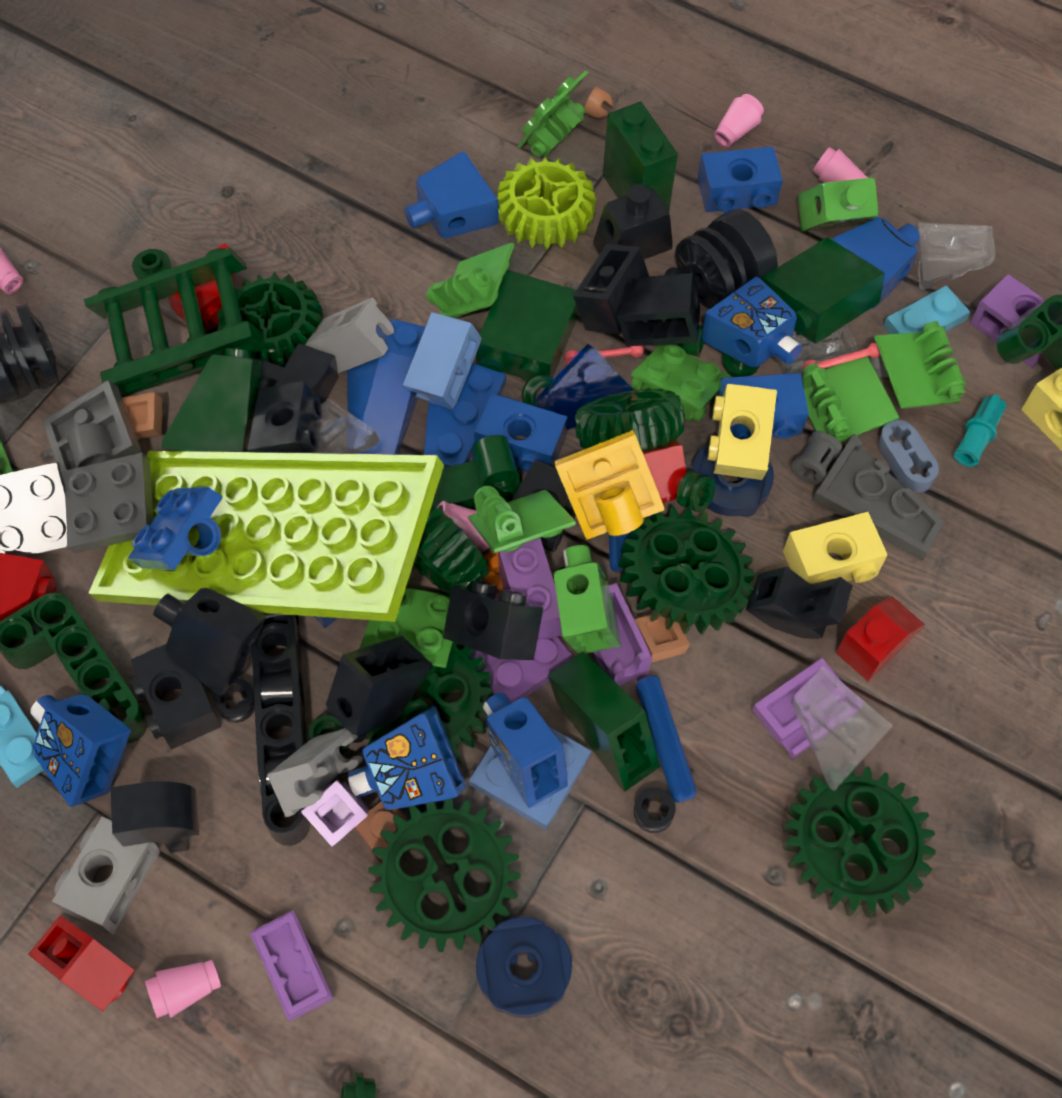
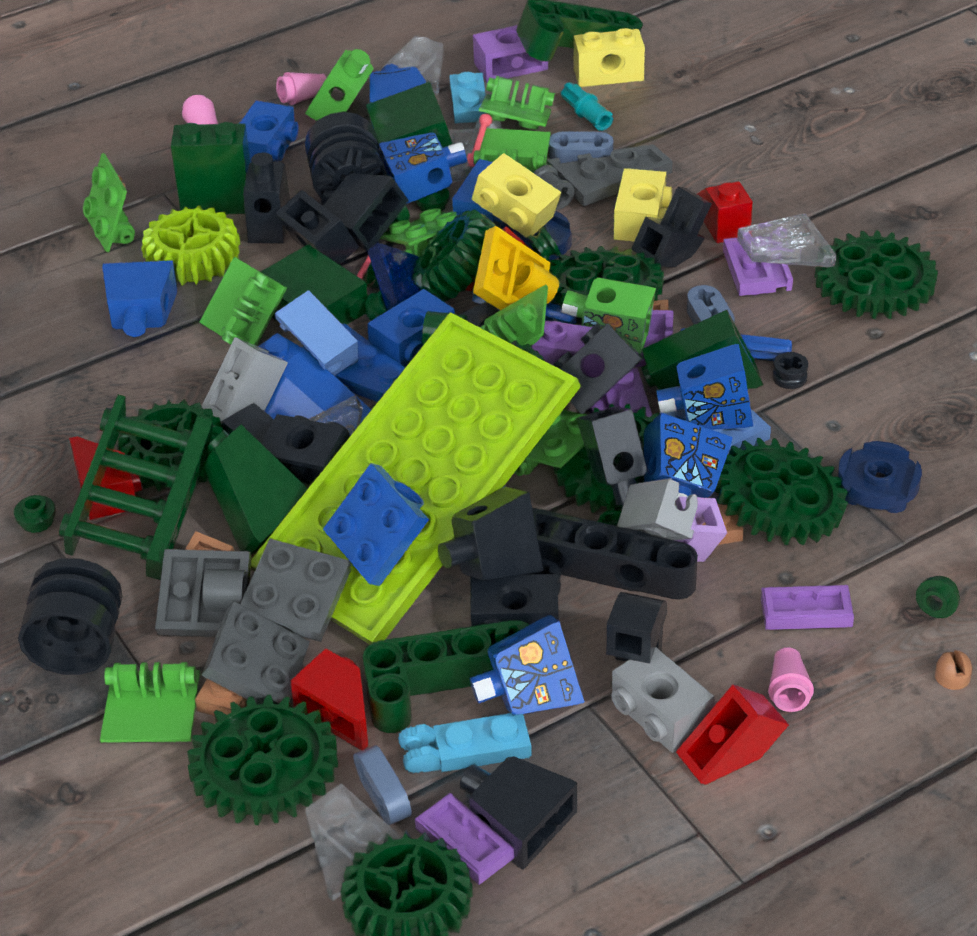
camera: 60 degrees left, 20 degrees down
(696, 687) = (705, 302): none -> sand blue beam

